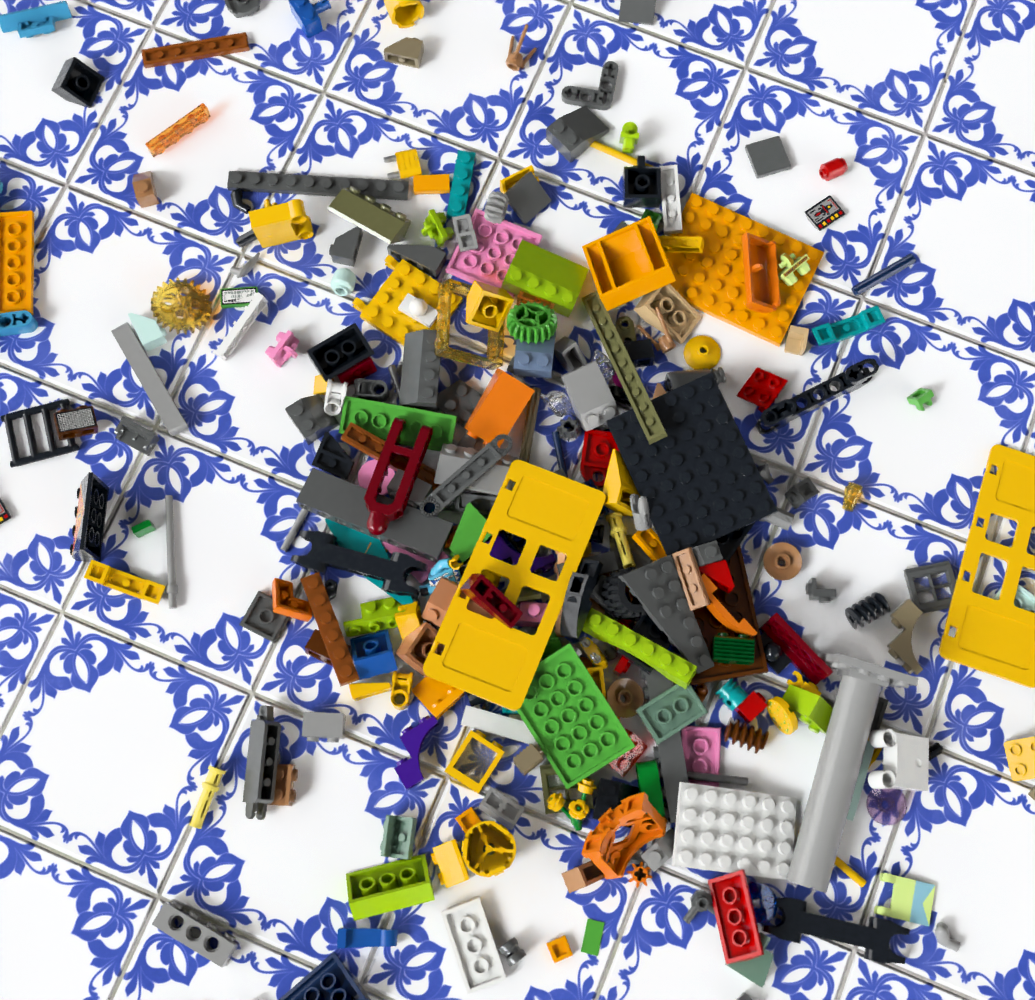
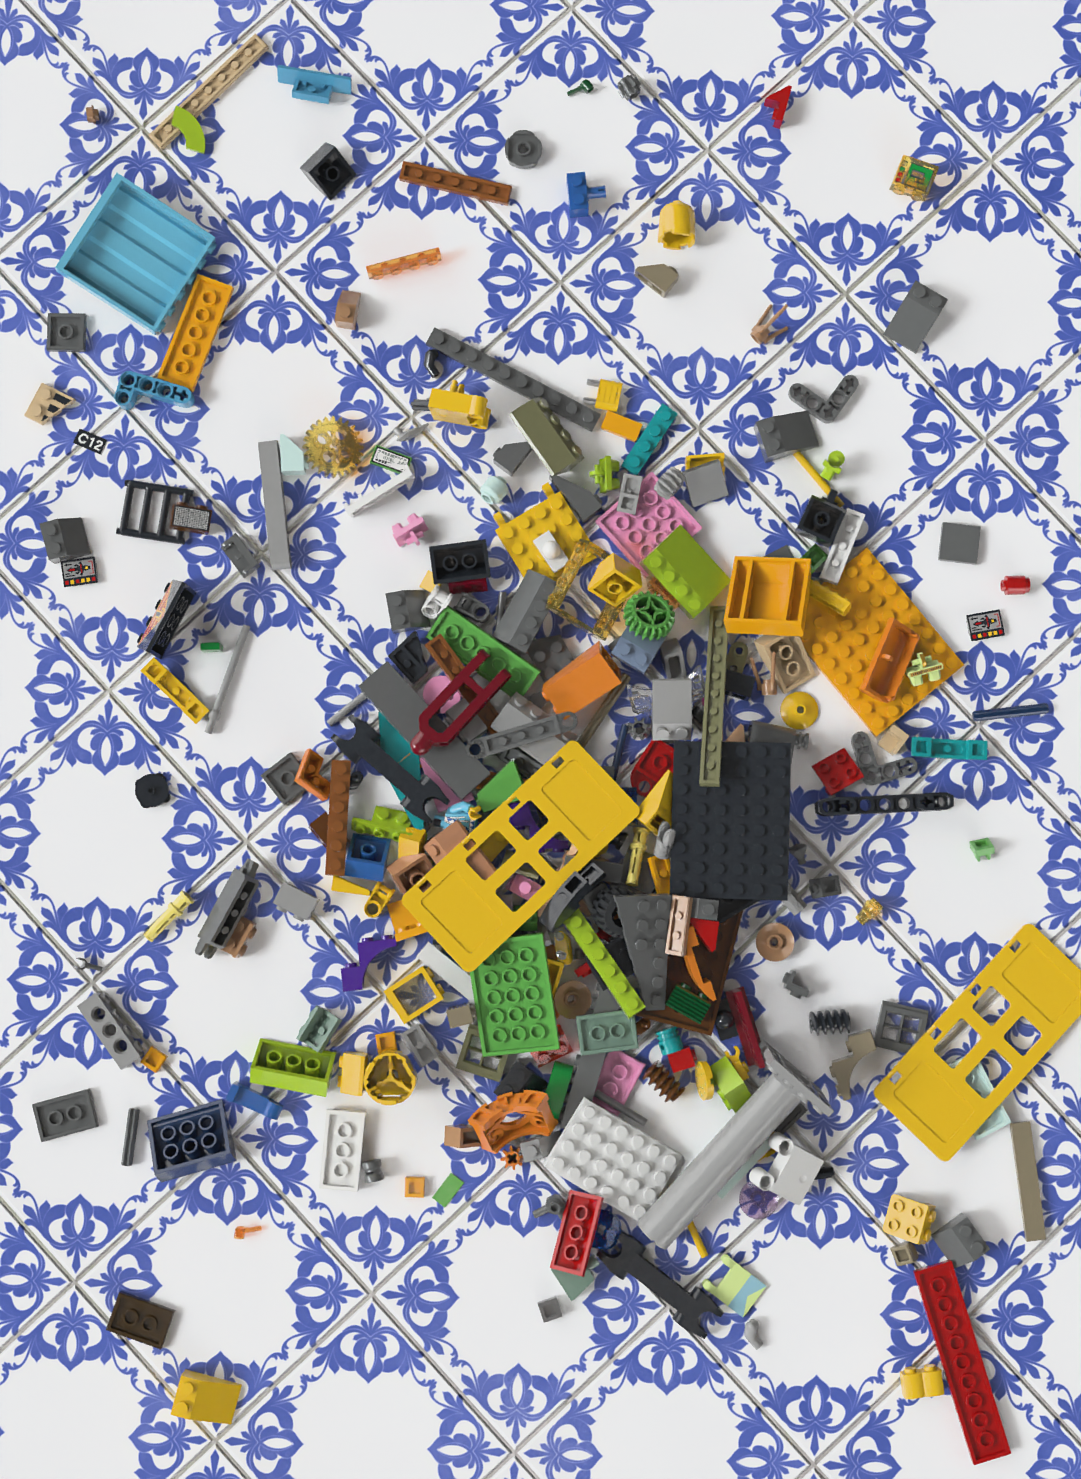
camera: 25 degrees right, 10 degrees up
(141, 685) = (152, 790): none -> black piece
(146, 881) = (85, 964): none -> dark grey hand
(250, 943) = (154, 1059): none -> light orange tile
(492, 600) = (490, 864): dark red slope -> none
(577, 808) = (483, 1081): yellow plant -> none
(790, 371) = (873, 767): none -> dark grey beam

